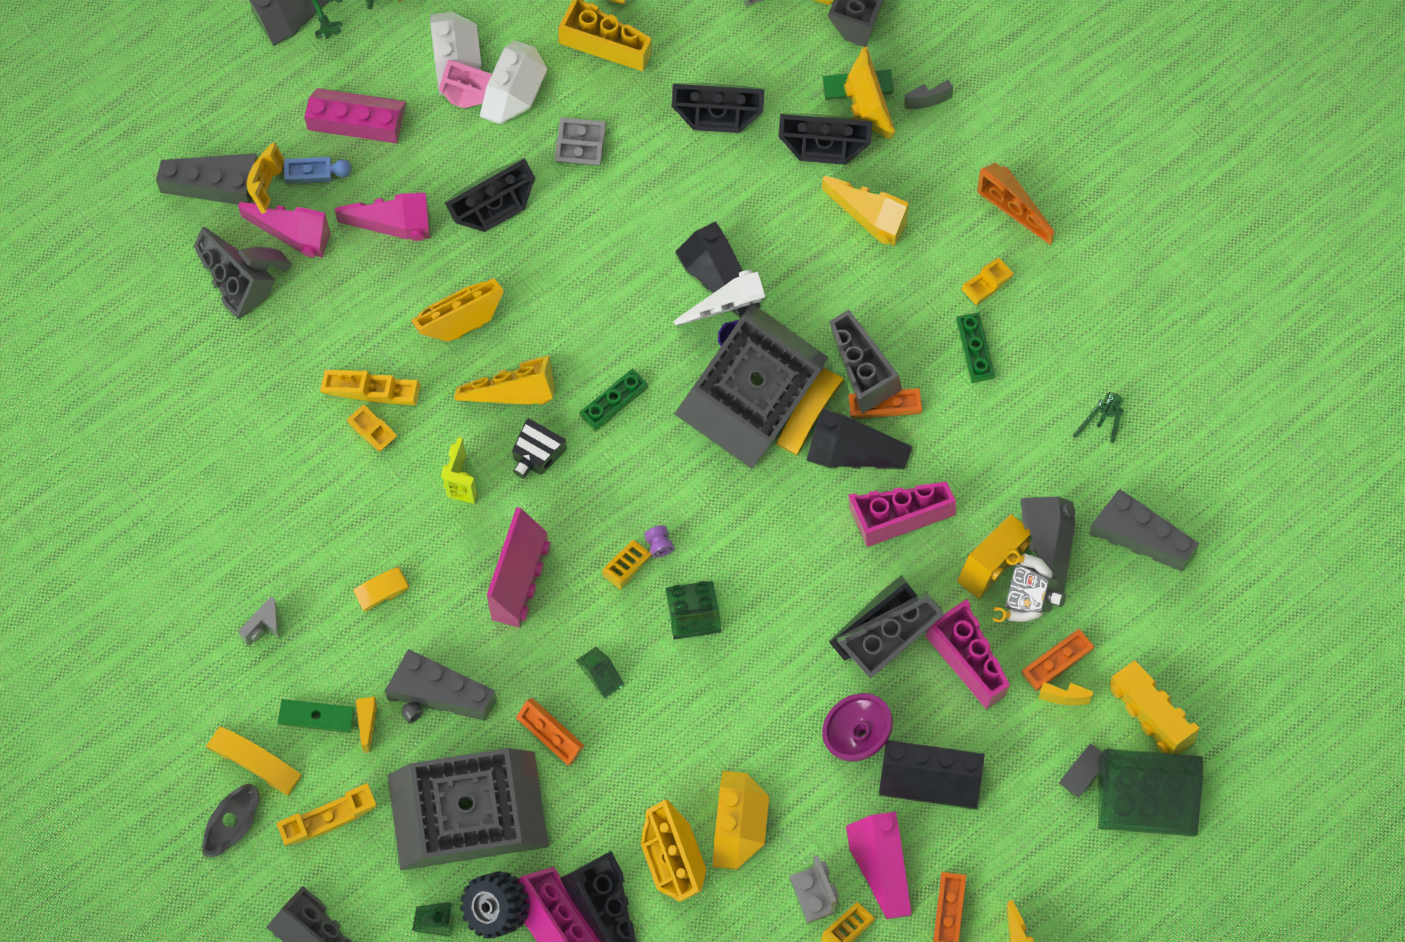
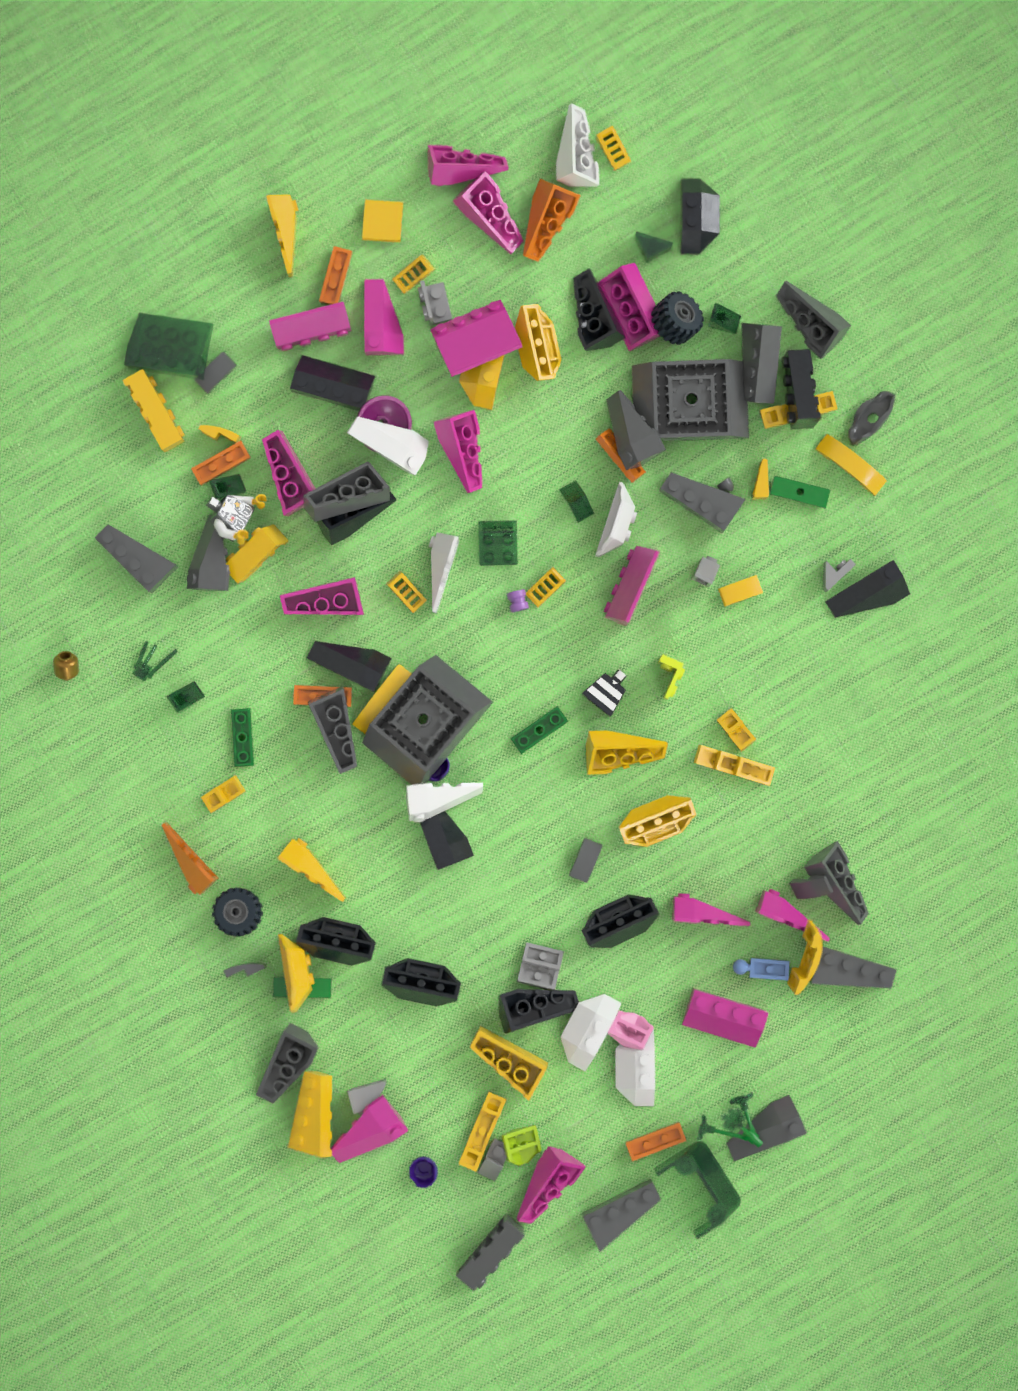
camera: 175 degrees left, 20 degrees up
(213, 611) = (876, 590): none -> black wedge
(326, 836) = (800, 389): none -> black wedge
(381, 868) = (760, 361): none -> dark grey wedge
(426, 600) = (706, 571): none -> light grey slope
(535, 746) = (633, 436): none -> dark grey wedge
(539, 260) = (585, 860): none -> dark grey slope
(544, 649) = (618, 522): none -> white wedge
(583, 93) = (528, 1007): none -> black wedge
(753, 843) = (476, 338): none -> dark pink slope
(758, 723) = (459, 440): none -> dark pink wedge
(759, 580) = (442, 557): none -> white wedge
(811, 548) = (394, 580): none -> yellow slope
(835, 702) = (396, 444): none -> white wedge
(947, 152) = (237, 912): none -> black wheel
(971, 839) = (310, 326): none -> dark pink slope
(1045, 630) = (227, 486): none -> clear green slope
(1053, 379) = (185, 697): none -> clear green slope
(1205, 396) = (66, 665): none -> pearl gold head

